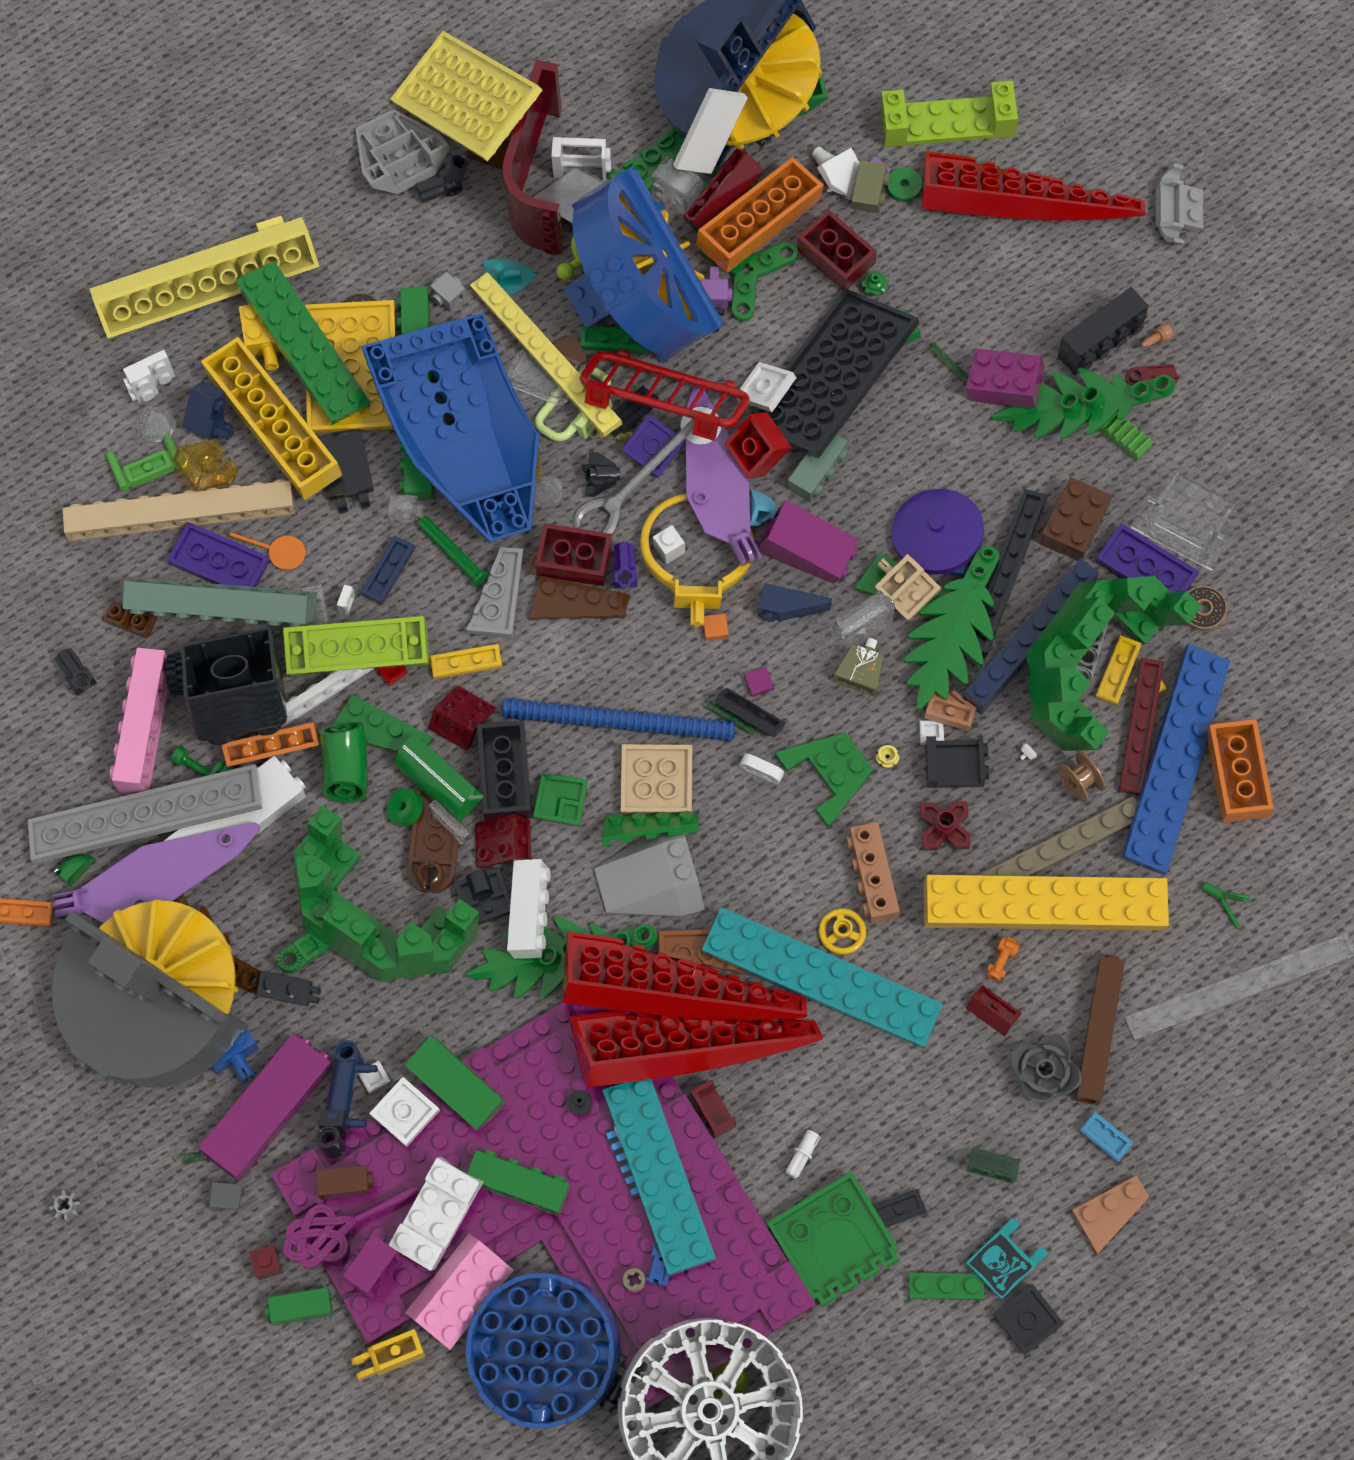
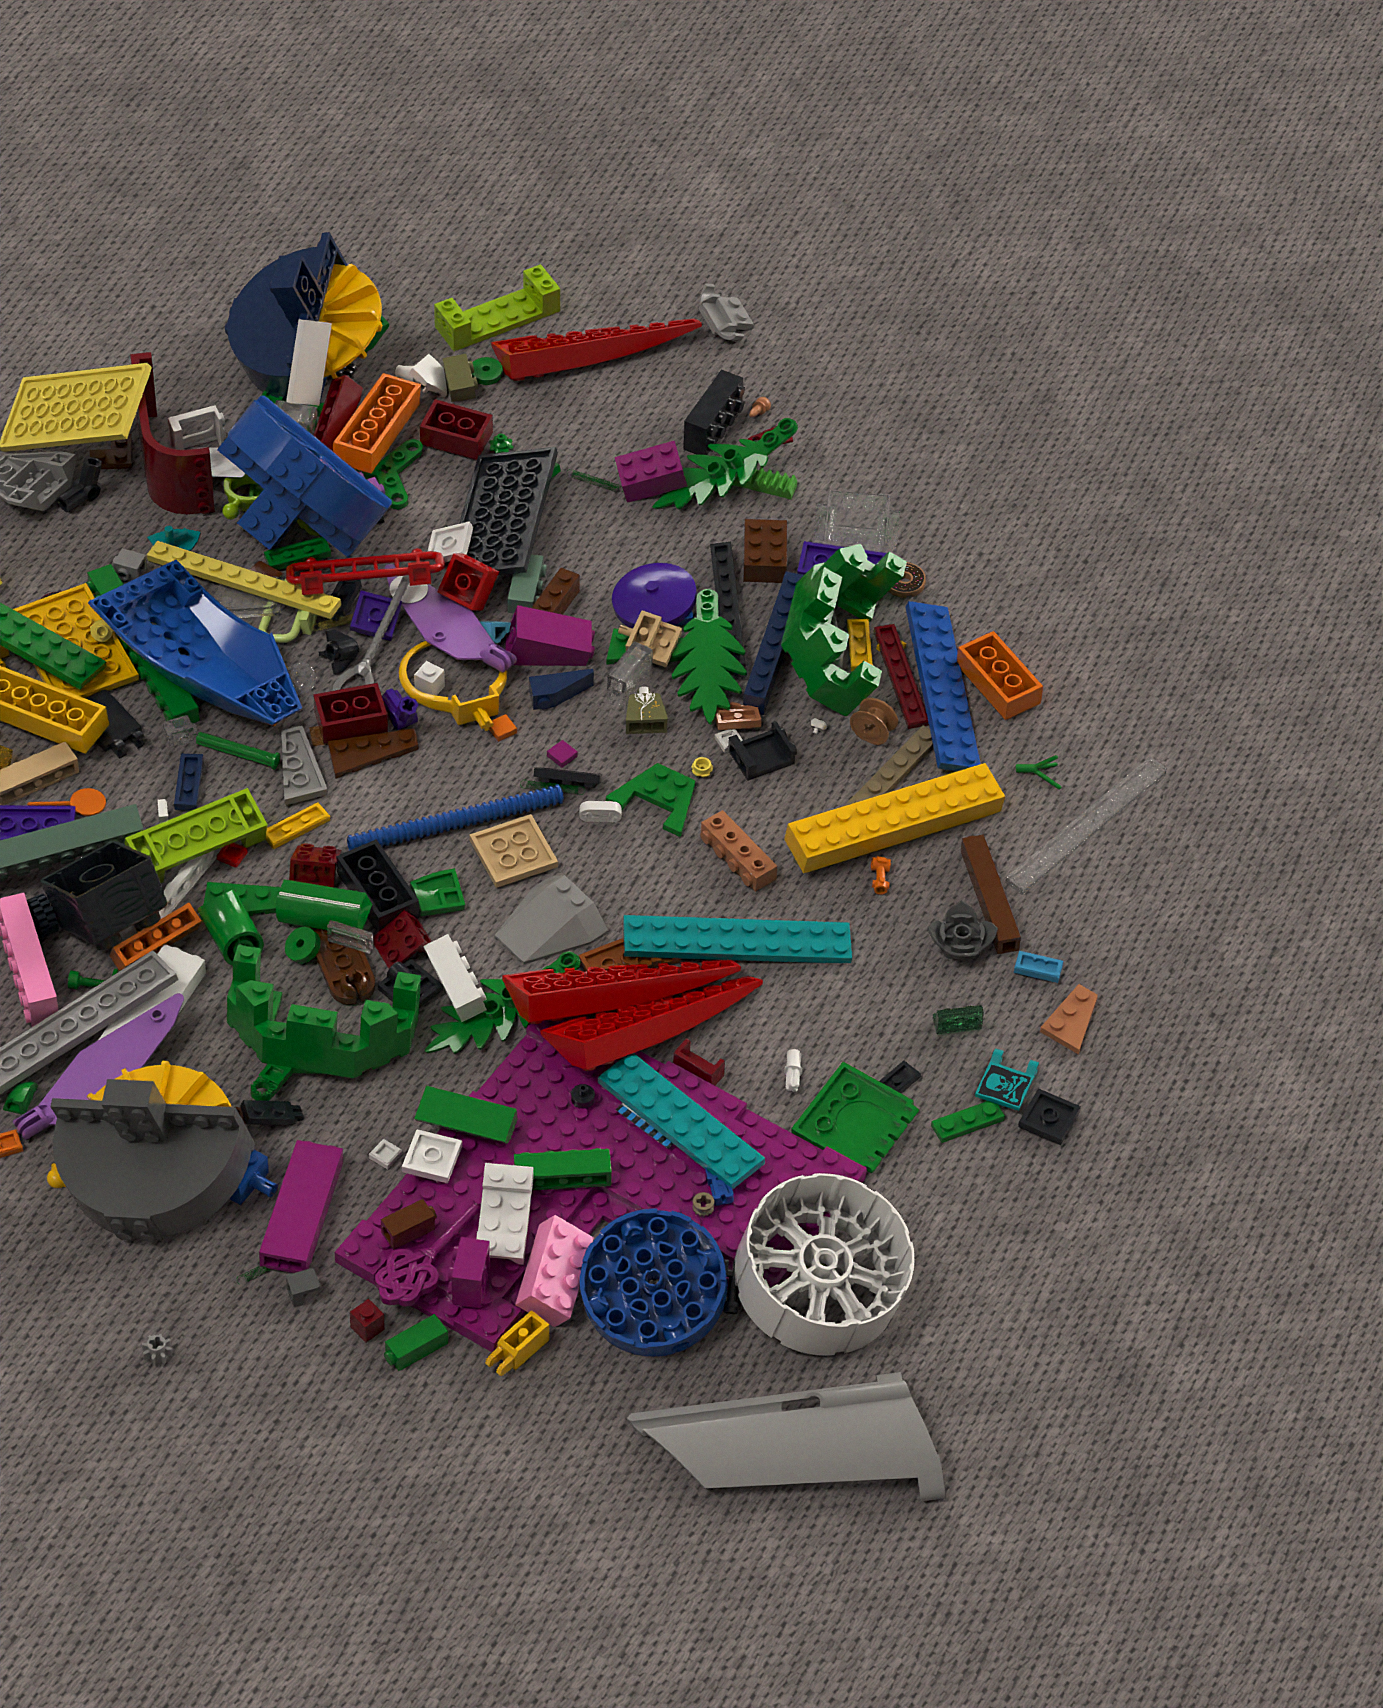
camera: 30 degrees left, 20 degrees down
(335, 1119) = (367, 1171): dark blue piece -> none
(650, 826) = (512, 889): green wing -> none
(839, 494) = (559, 592): none -> reddish brown brick
(845, 923) = (735, 898): yellow piece -> none
(937, 833) = (778, 798): dark red plant -> none
(993, 1010) = (893, 915): dark red slope -> none

